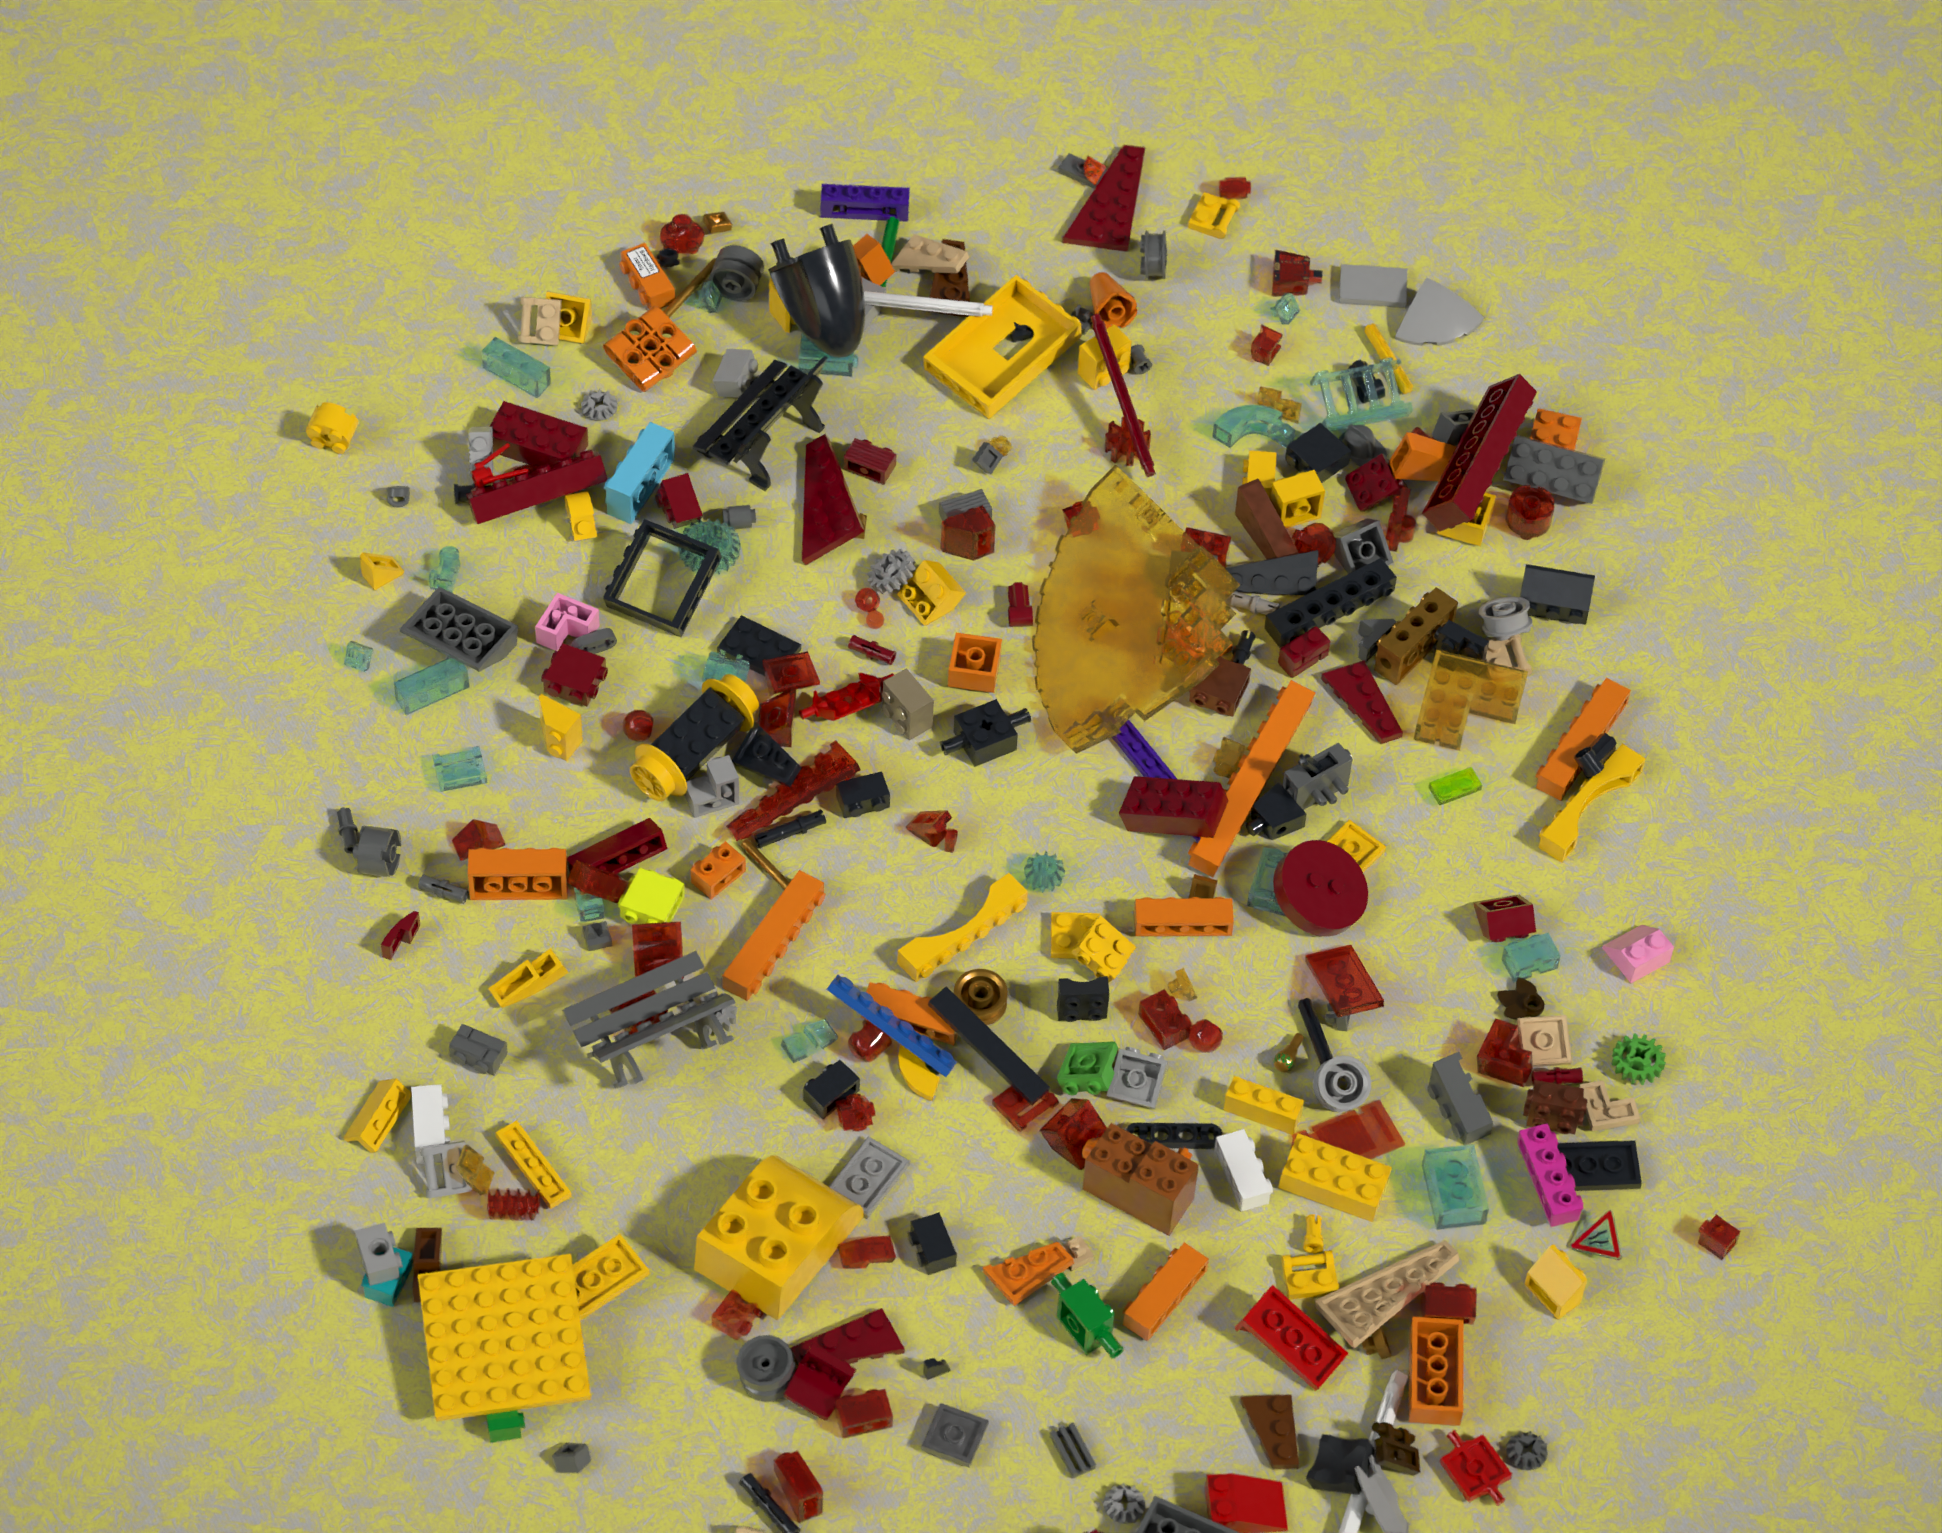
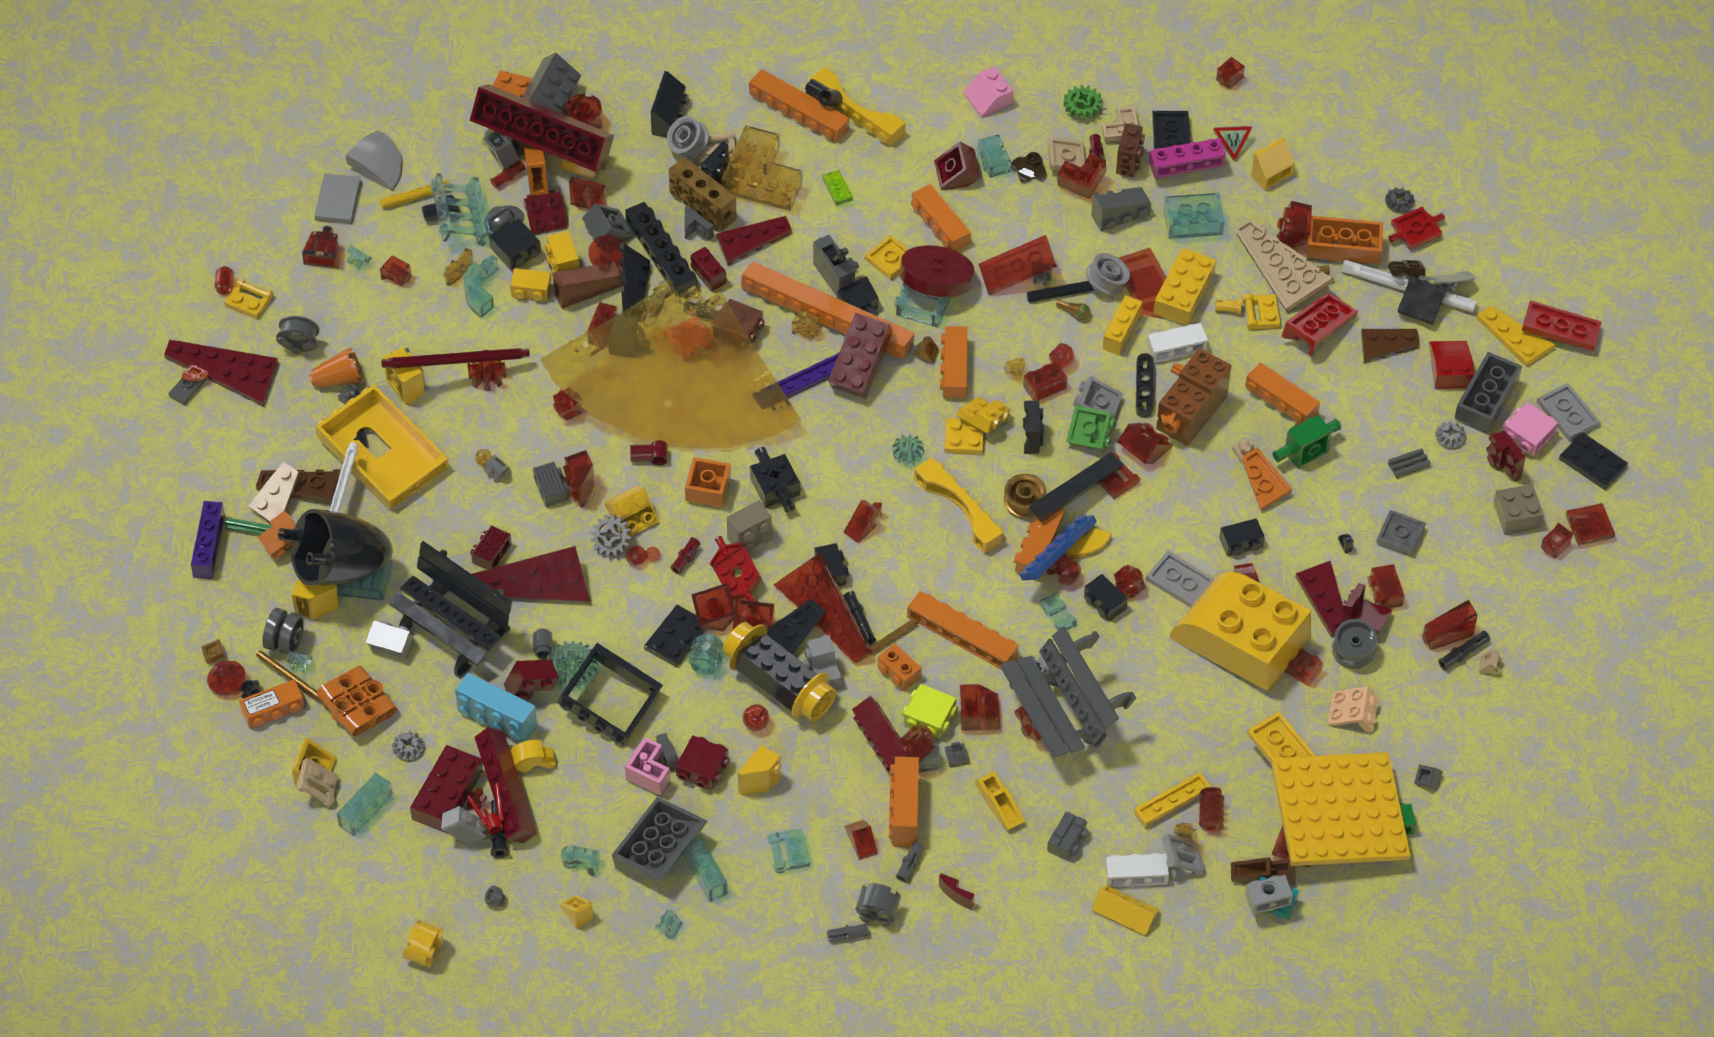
camera: 85 degrees left, 0 degrees up
(671, 1373) = (1354, 706): none -> light nougat bracket
(1418, 899) = (940, 218): none -> orange brick

